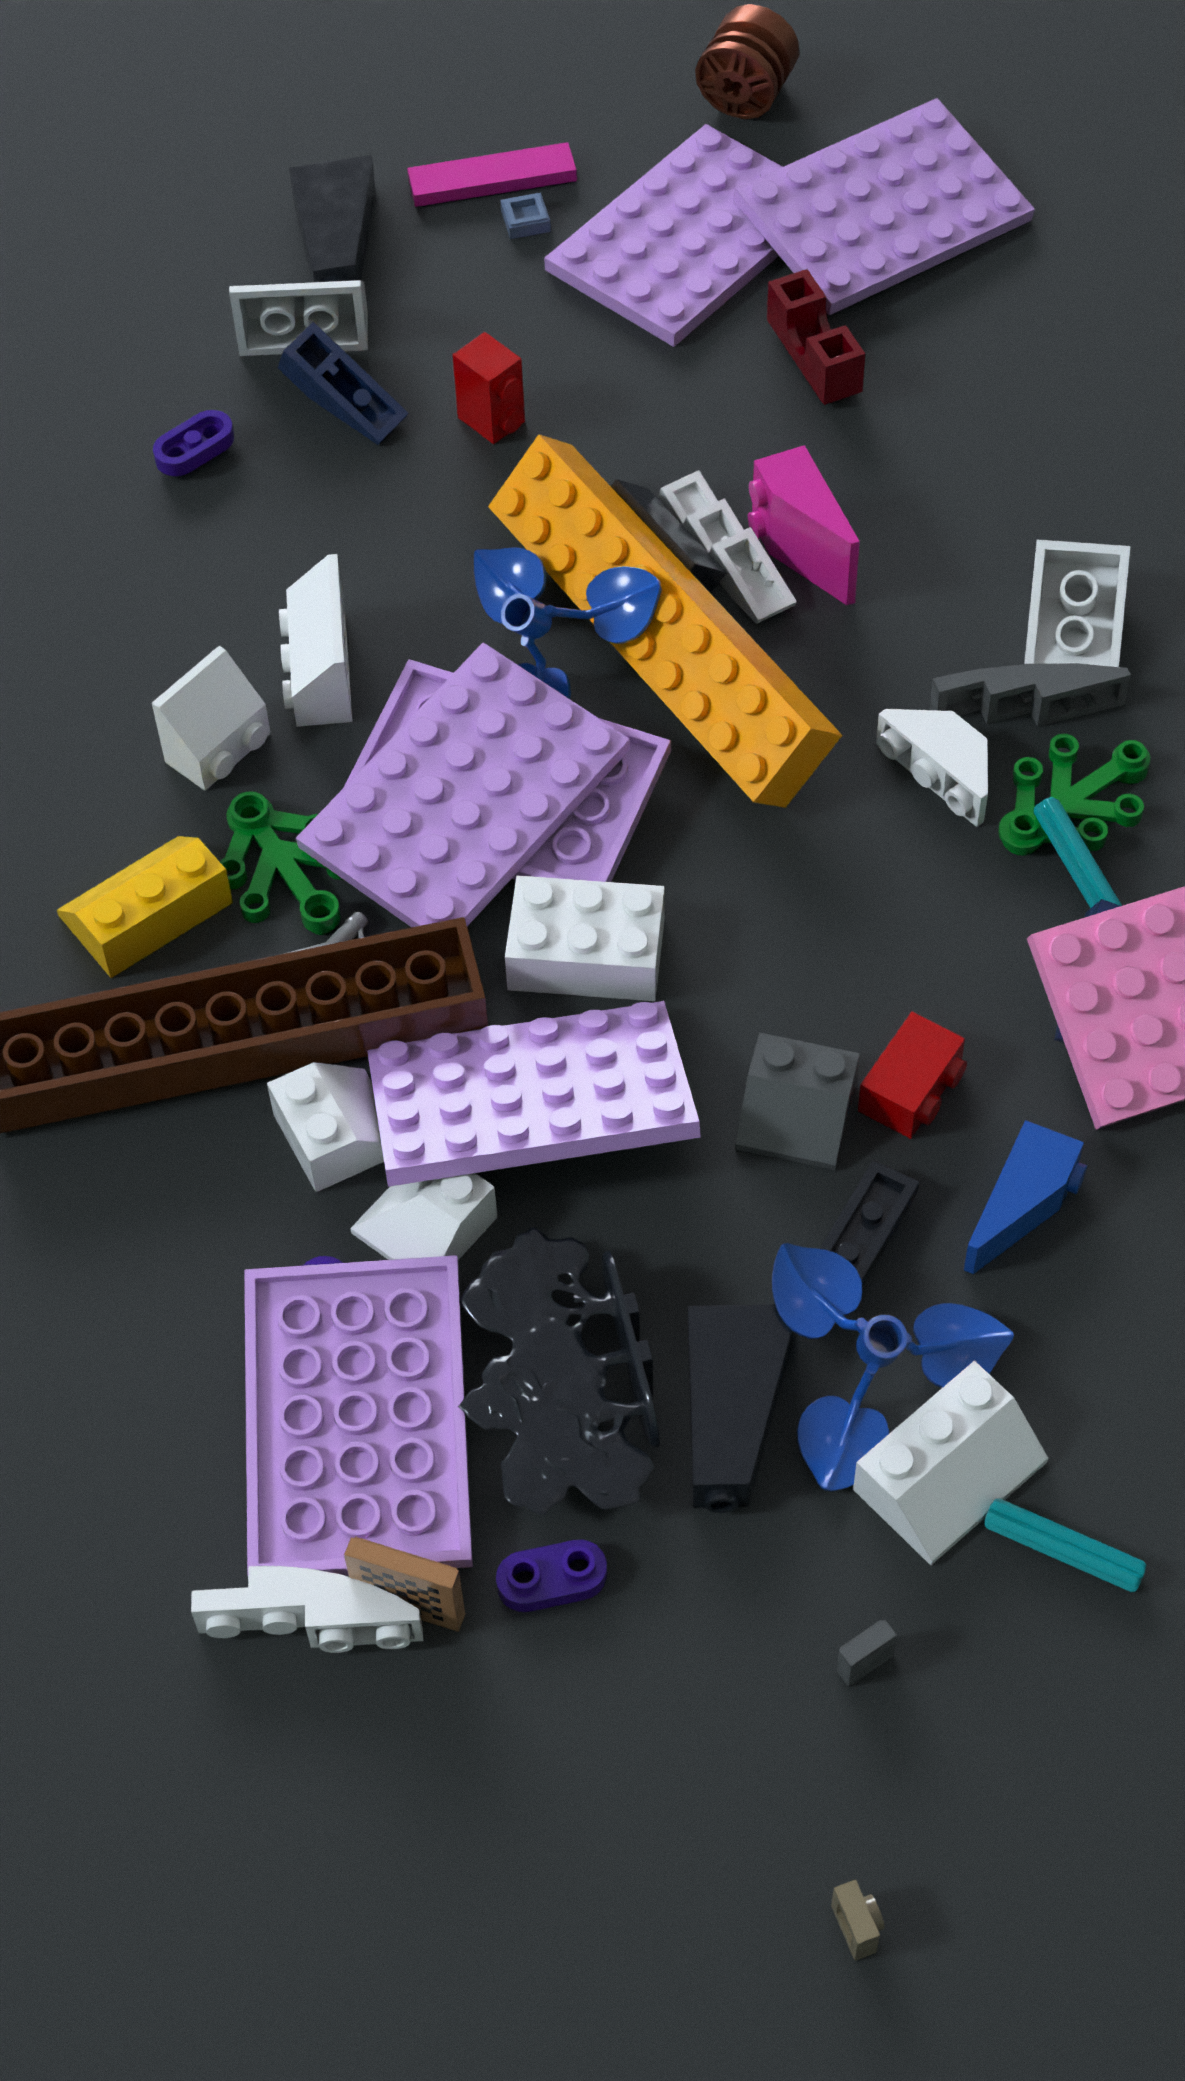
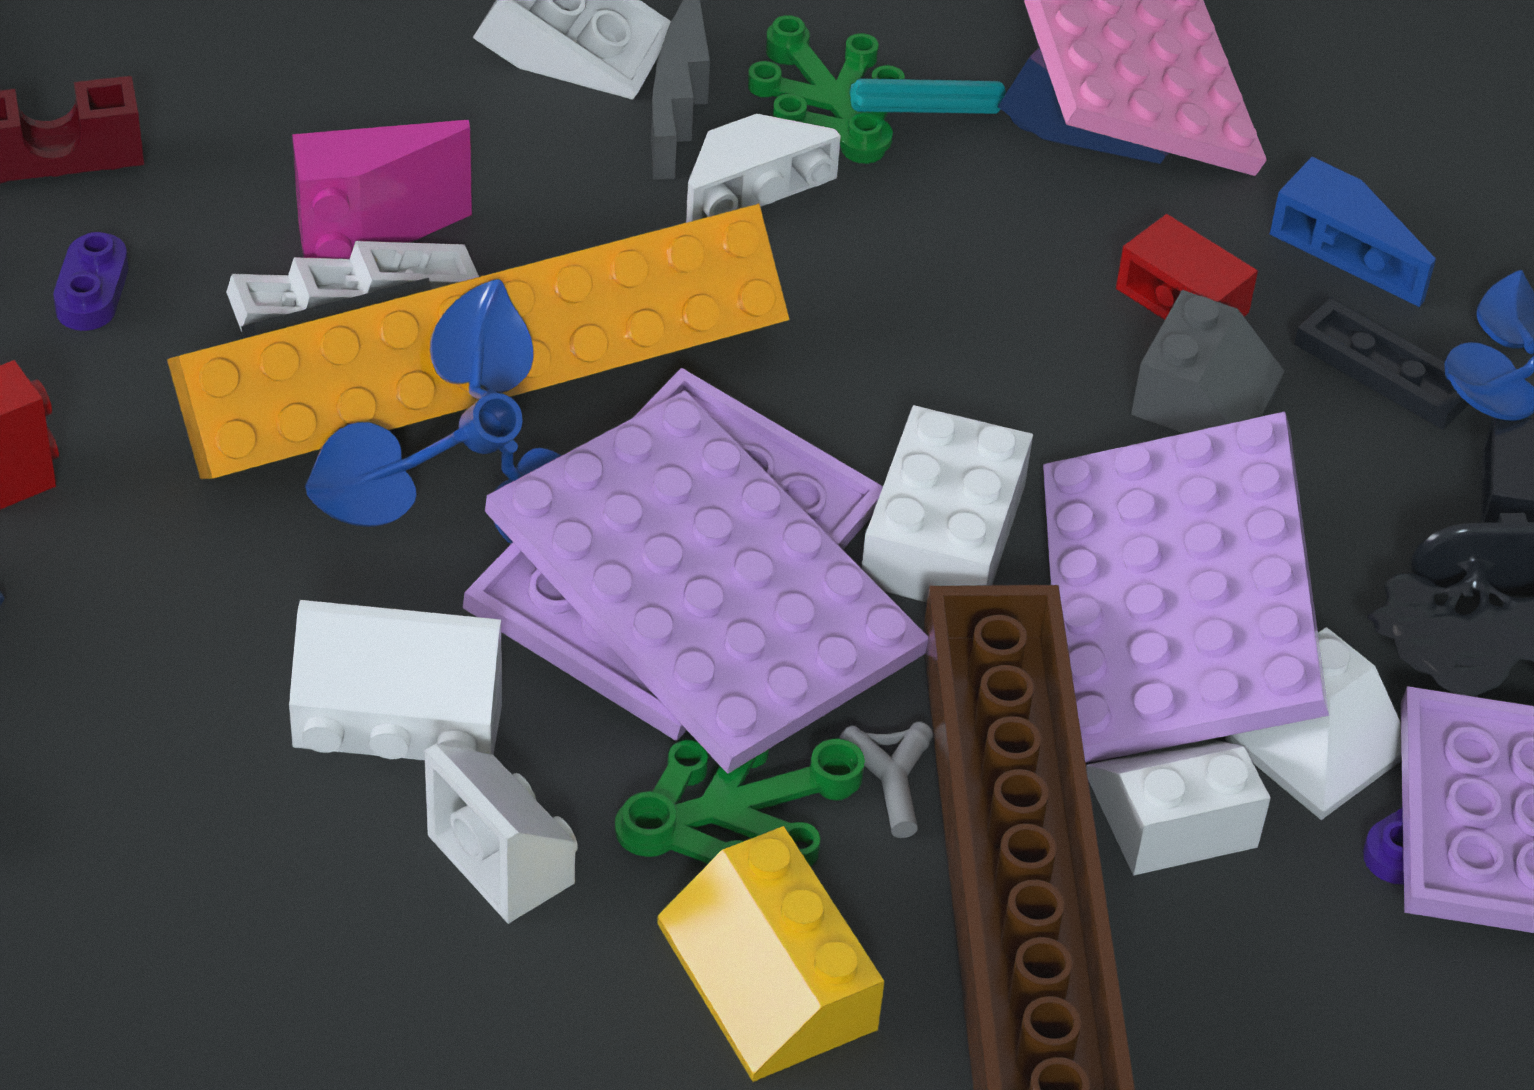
camera: 85 degrees left, 10 degrees down
(690, 408) = (91, 281): none -> dark purple plate

